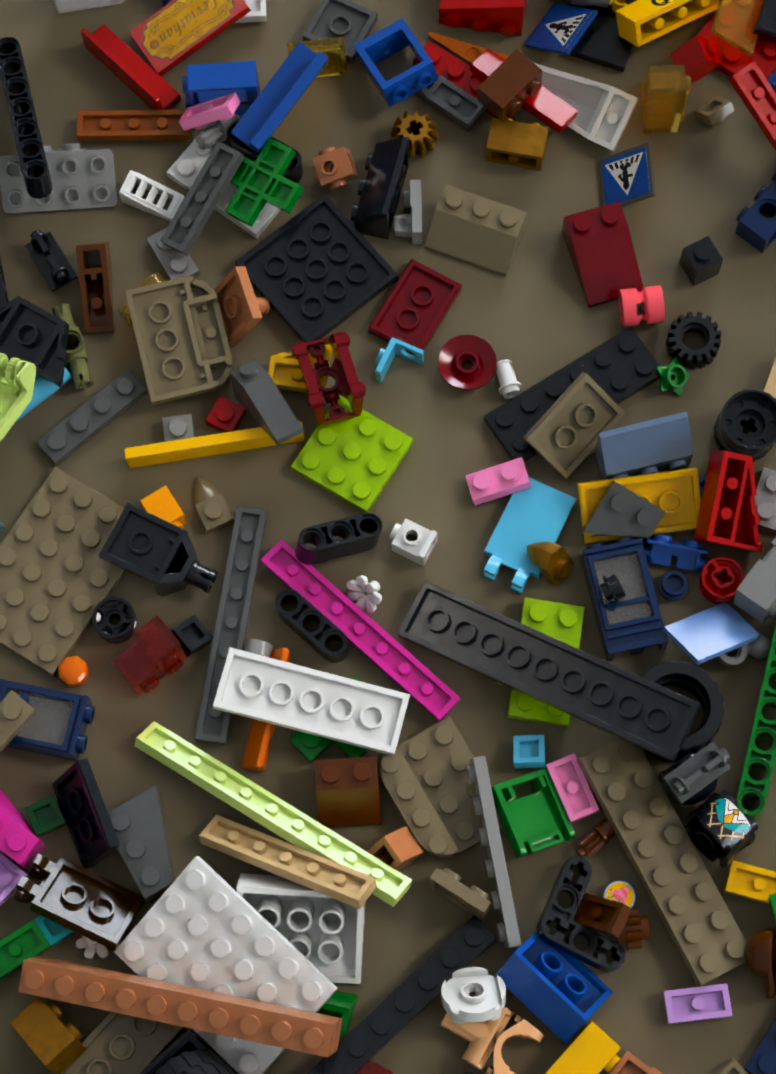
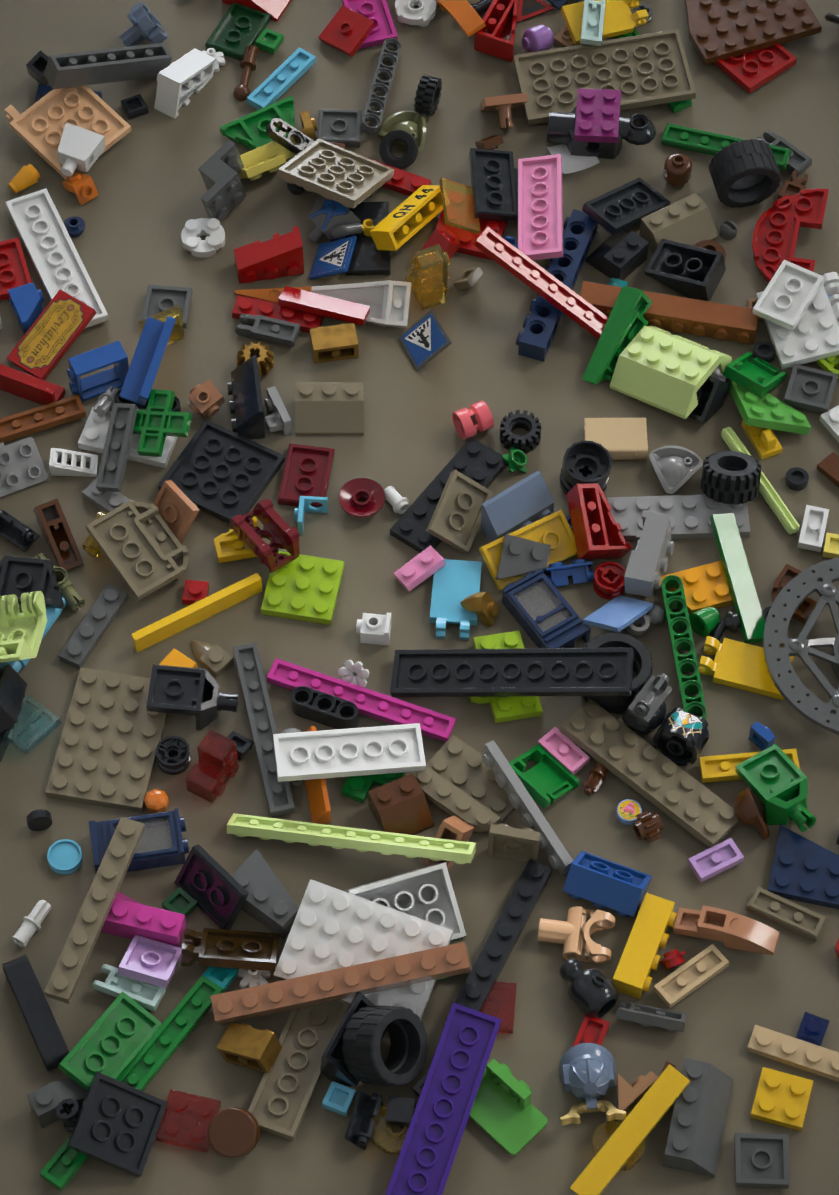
camera: 25 degrees left, 15 degrees down
(178, 427) = (162, 610): light grey plate -> none
(210, 111) = (91, 392): bright pink plate -> none
(264, 402) = (221, 567): dark grey slope -> none
(288, 861) = (378, 863): tan plate -> none
(329, 548) = (319, 642): black beam -> none
(386, 43) = (209, 303): blue window -> none
(465, 1008) = (553, 905): white plate -> none
(510, 85) = (315, 301): reddish brown brick -> none
(529, 751) = (521, 737): medium azure plate -> none
(565, 916) = (596, 836): black beam -> none
(602, 253) = (427, 394): dark red slope -> none
(602, 915) = (621, 822): reddish brown plate -> none
(612, 588) = (536, 605): black plate -> none
(673, 585) = (577, 595): dark blue plate -> none
(701, 261) = (503, 377): black brick -> none

